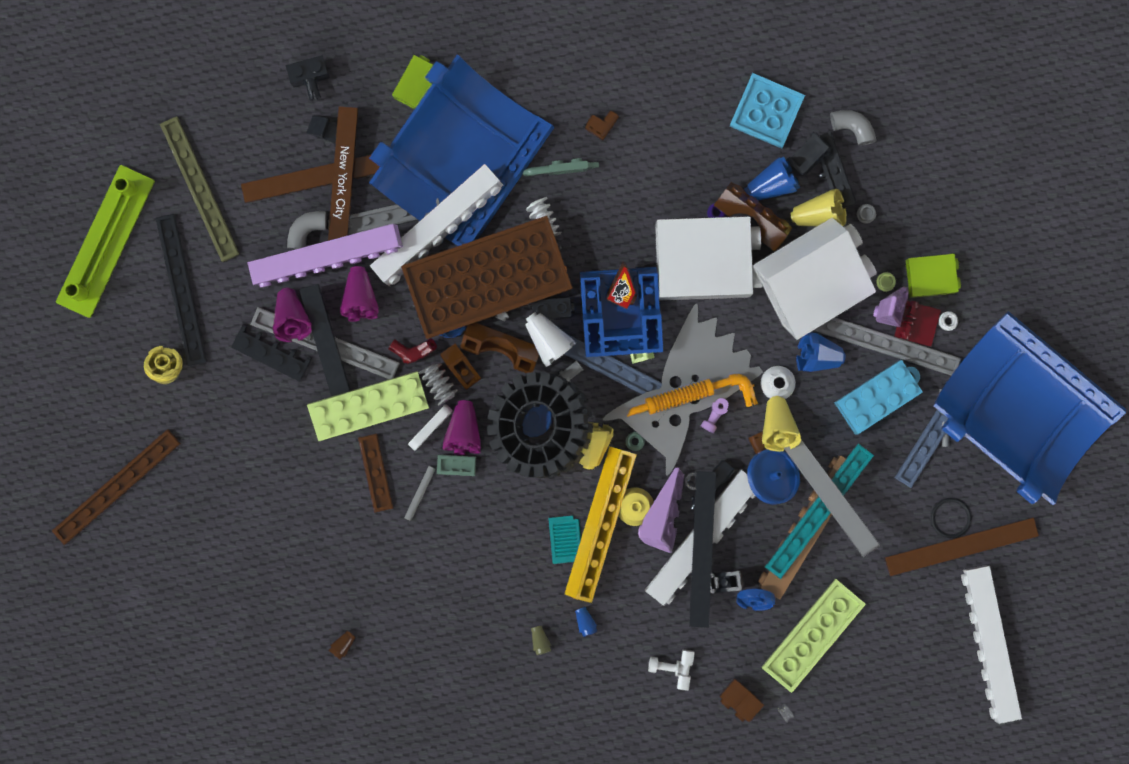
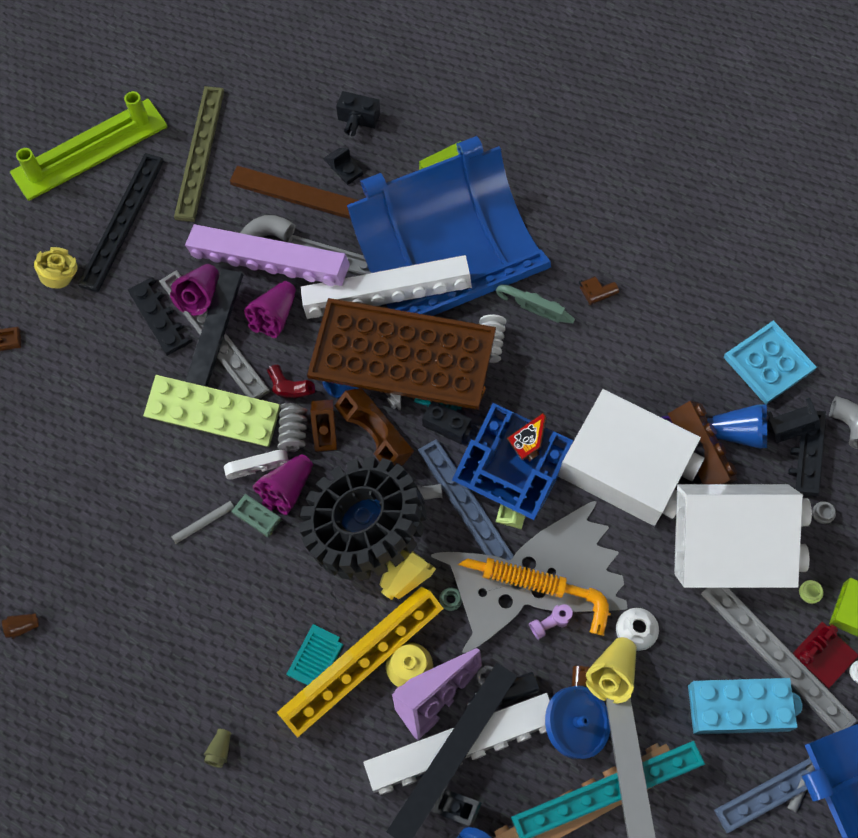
camera: 30 degrees right, 20 degrees down
(343, 172) = (334, 197): reddish brown tile -> none
(375, 473) = (174, 478): reddish brown tile -> none
(548, 338) = (425, 442): white cone -> none
(585, 622) = (278, 760): blue cone -> none
(818, 353) = (699, 621): blue cone -> none
(820, 210) = (781, 472): light yellow cone -> none
(892, 308) = (807, 616): lavender wedge -> none

